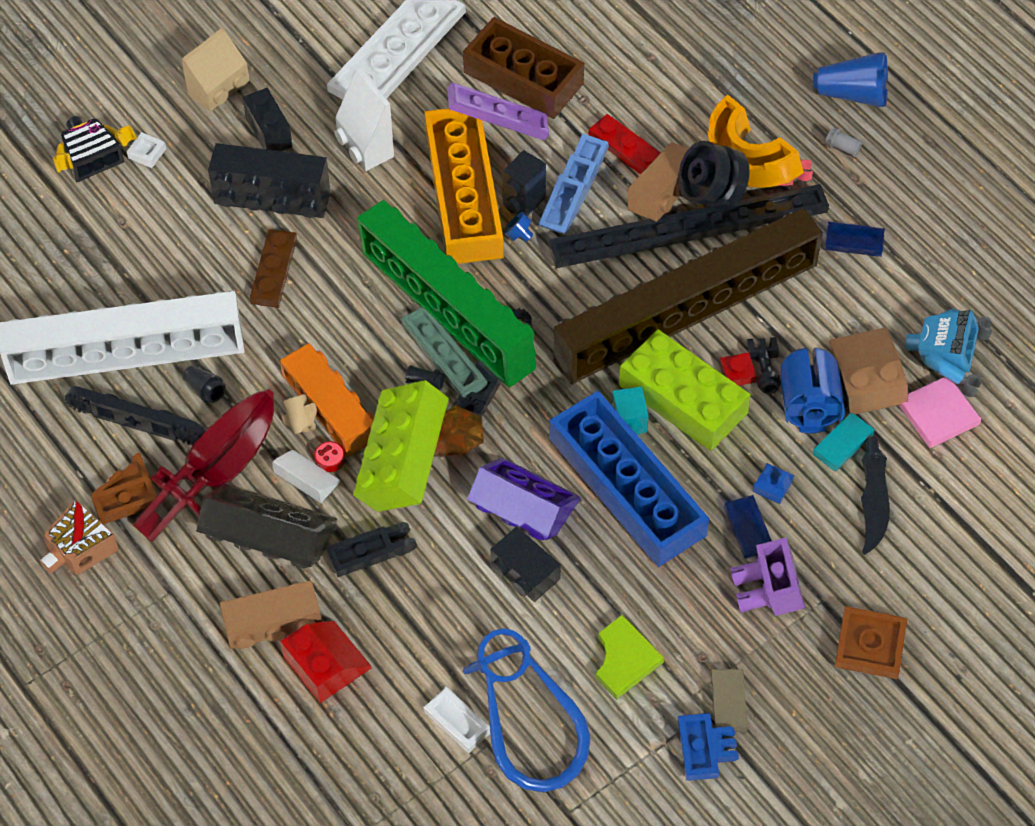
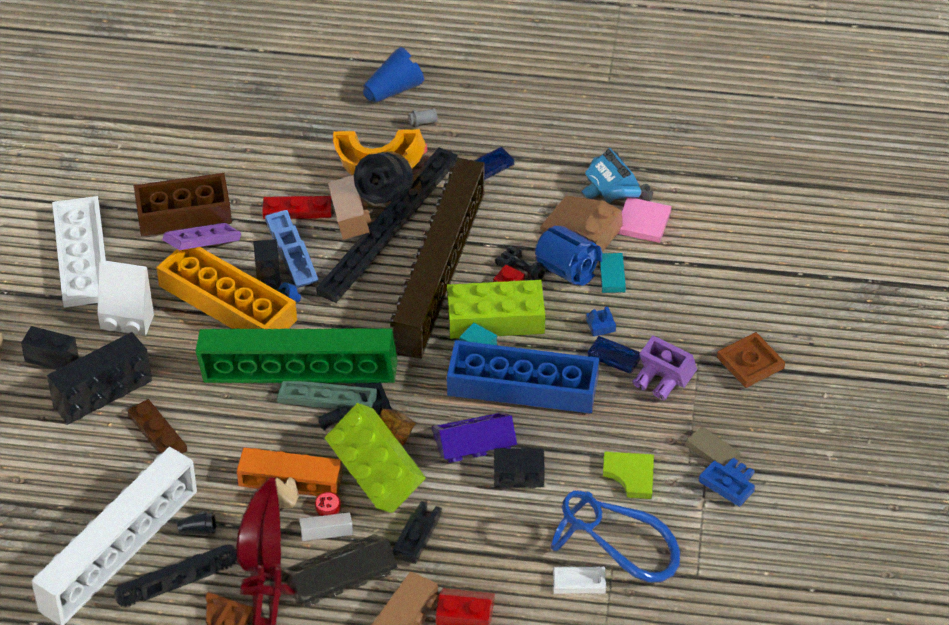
camera: 45 degrees left, 10 degrees down
(875, 496) = (661, 286): black sword -> none

